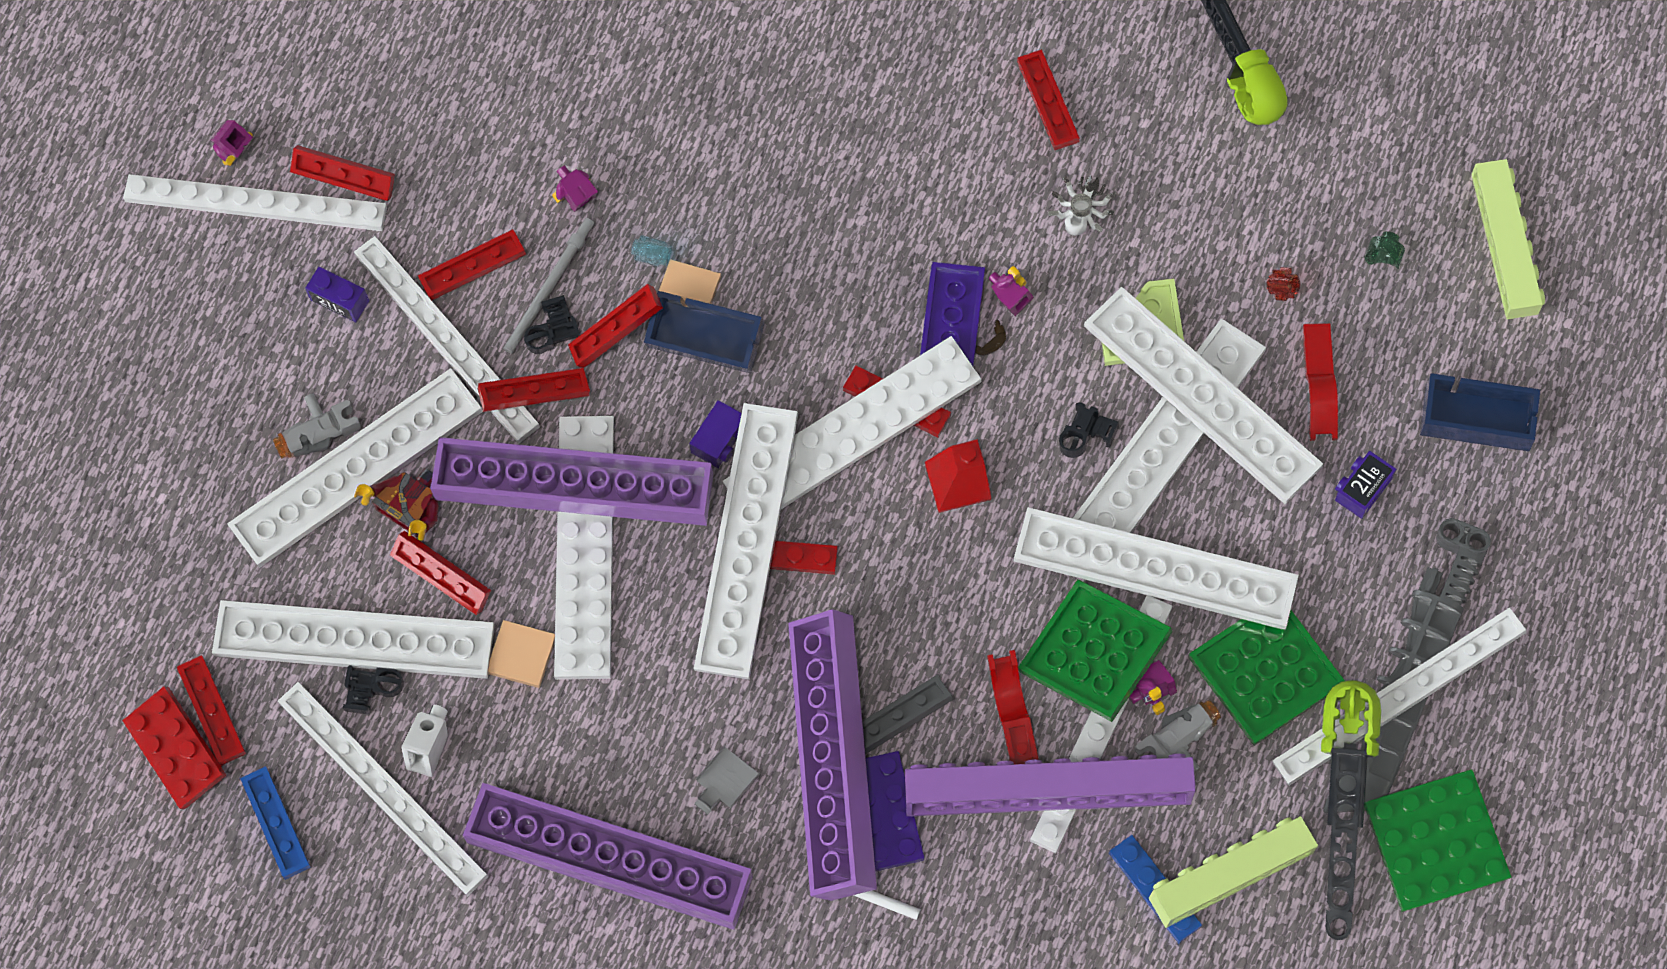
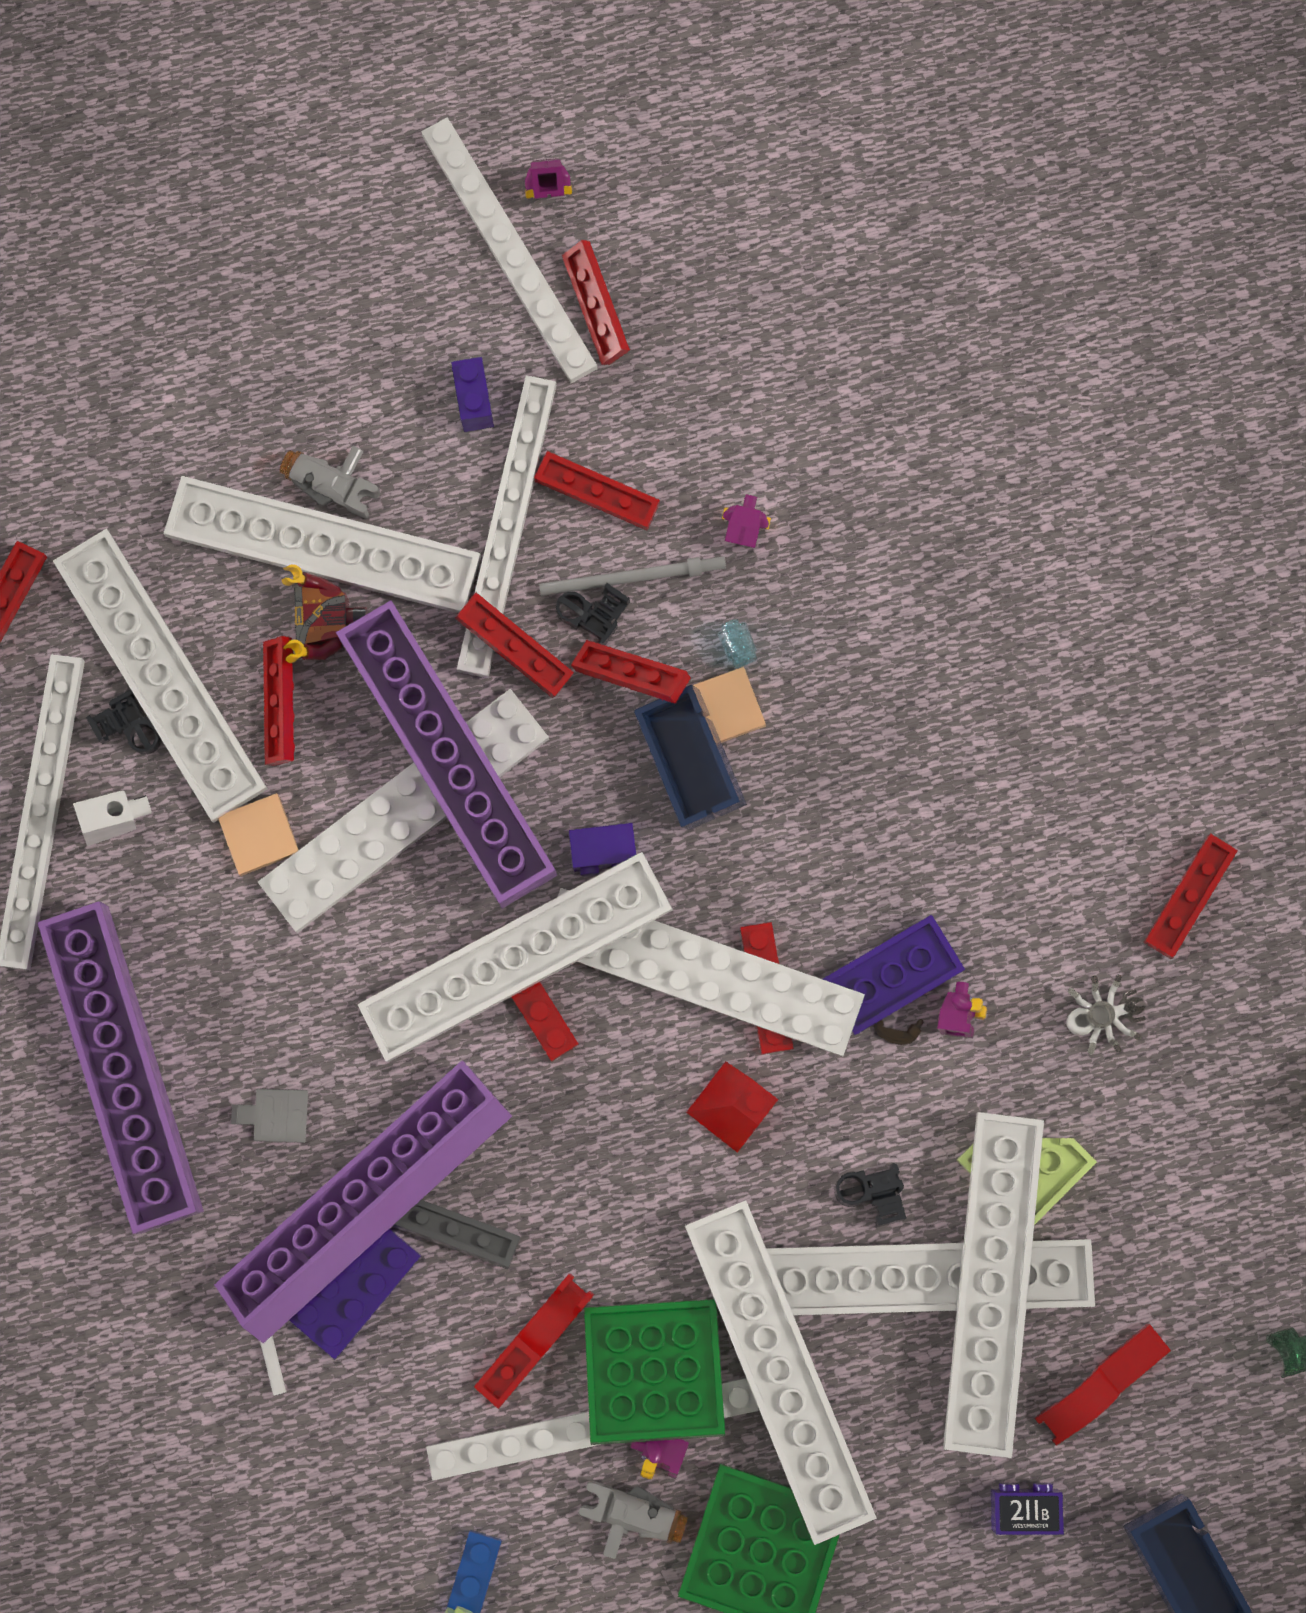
camera: 50 degrees right, 10 degrees up
(1049, 785) = (479, 1437): medium lavender brick -> none
(1283, 284) = (1175, 1274): clear red gear -> none

